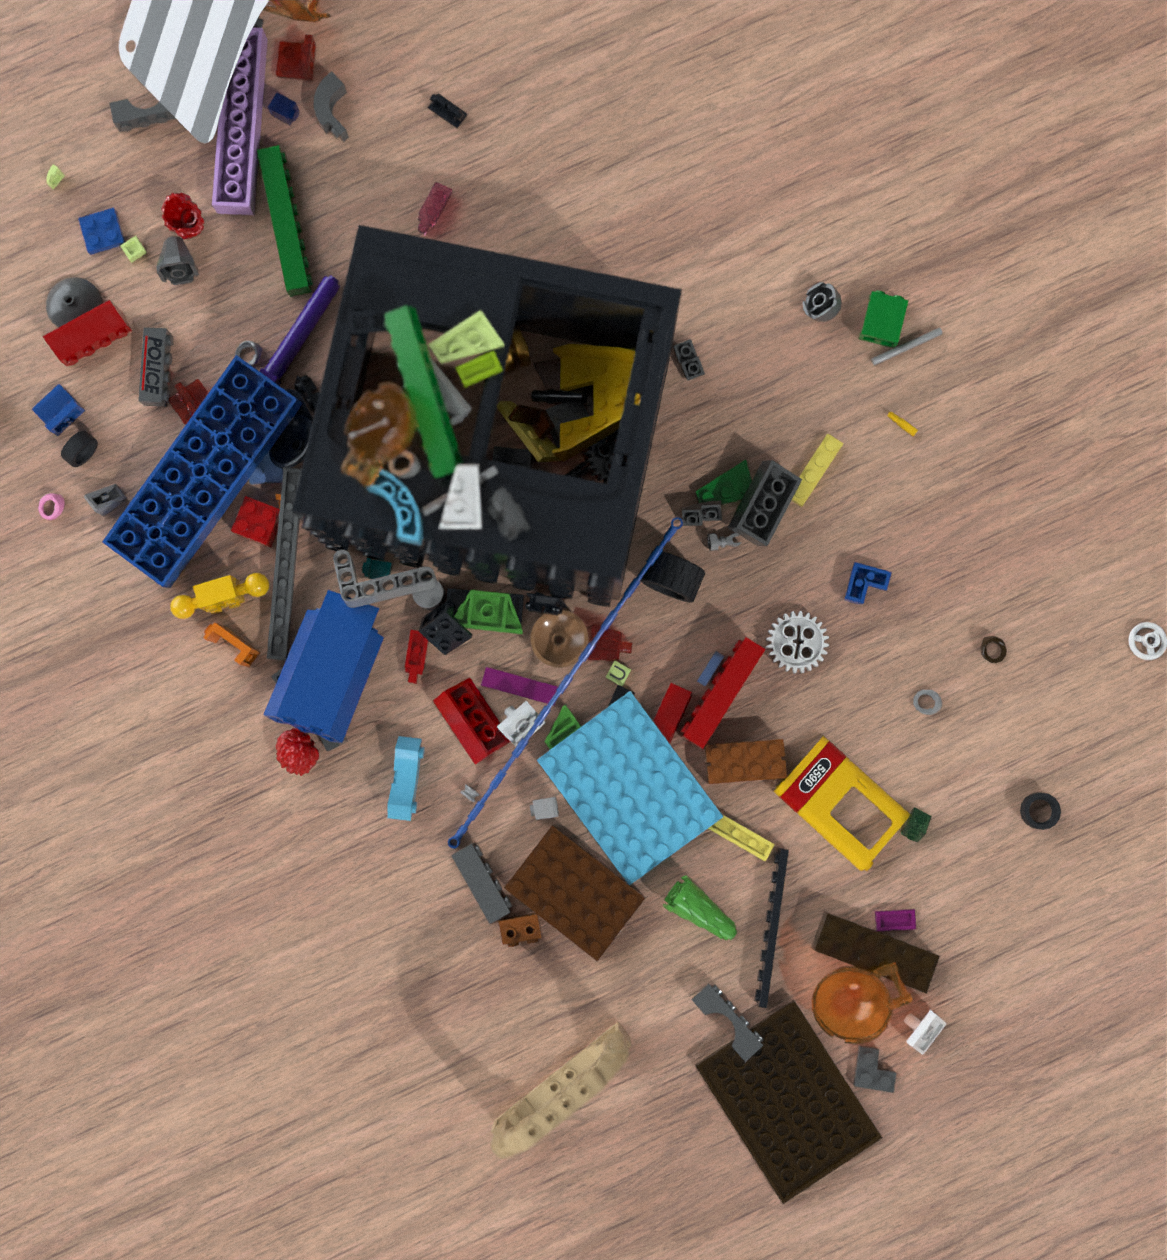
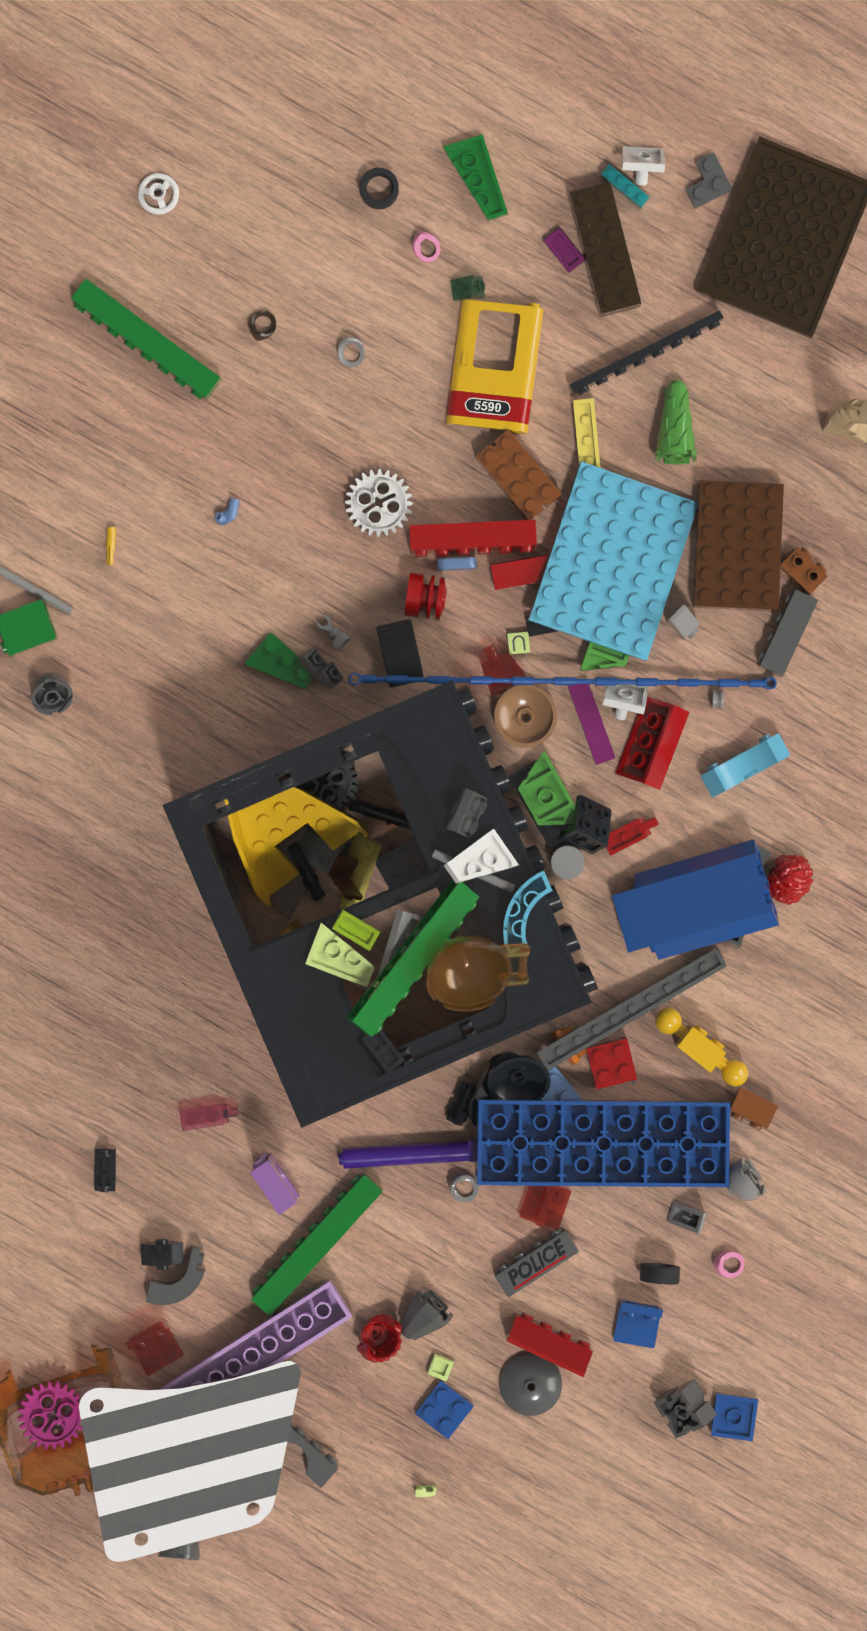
camera: 130 degrees left, 5 degrees up
(99, 559) = (745, 1181): none -> light grey cylinder
(147, 602) = (752, 1109): none -> dark orange brick
(247, 652) = (731, 986): orange panel -> none
(283, 109) = (211, 1322): clear blue brick -> none
(345, 210) = (274, 1183): none -> medium lavender arch
(358, 107) = (162, 1253): none -> black hinge
(375, 569) = (579, 924): teal bracket -> none
(378, 584) = (592, 908): light grey beam -> none
(385, 422) = (459, 975): light grey hinge -> none
(413, 468) = (485, 923): light grey piece -> none
(553, 604) = (504, 757): black hinge -> none
(688, 360) = (187, 778): dark grey slope -> none
(704, 623) = (425, 596): none -> red wheel
(745, 1041) = (760, 309): dark grey arch -> none
(764, 503) = (274, 617): dark grey brick -> none
(816, 468) = (209, 595): light yellow plate -> none
(856, 1002) = (660, 237): clear orange windscreen -> none
(861, 578) = (281, 485): blue brick -> none
(865, 525) = (229, 514): none -> medium blue arm
(919, 1001) = (624, 186): none -> teal piece
(981, 815) = (416, 246): none -> bright pink piece
(1002, 895) = (475, 168): none -> green wing
(1041, 554) = (146, 339): none -> green brick

